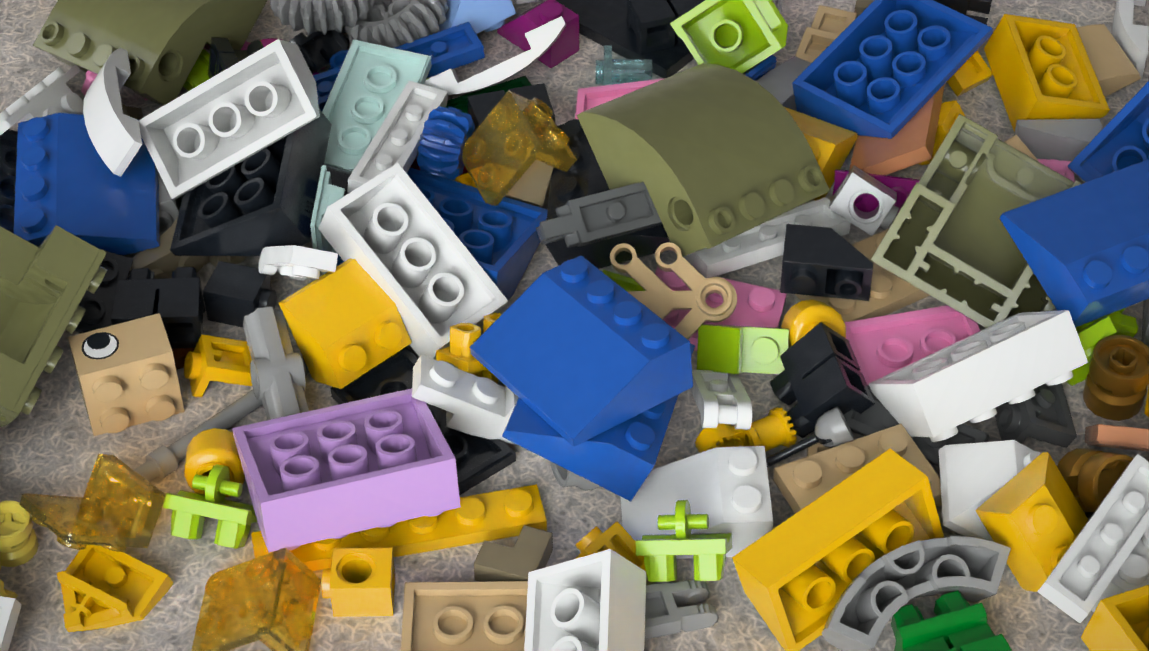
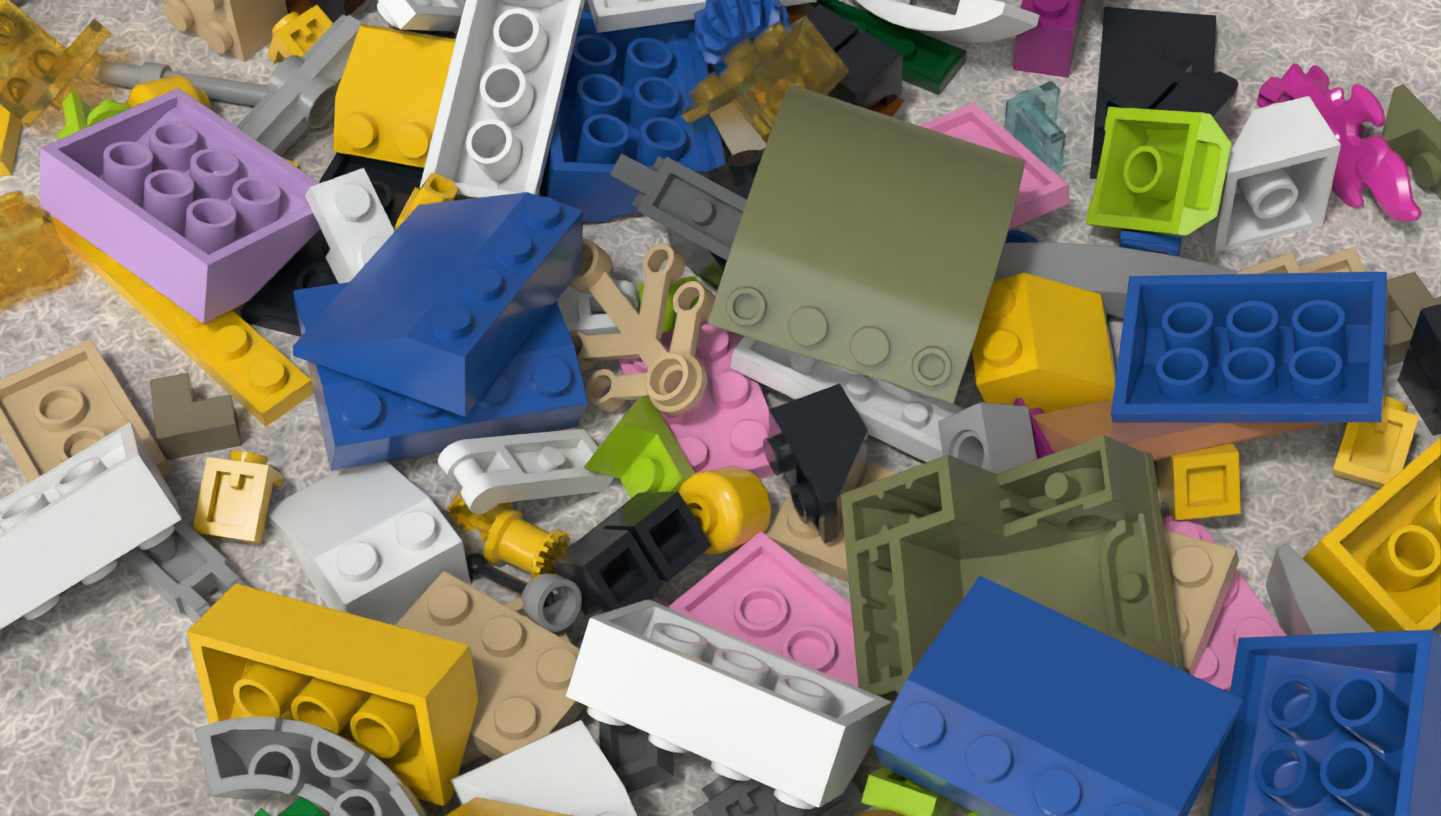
camera: 60 degrees right, 5 degrees up
(360, 582) = (75, 304): yellow brick -> none
(661, 550) = (262, 540): lime hips -> none

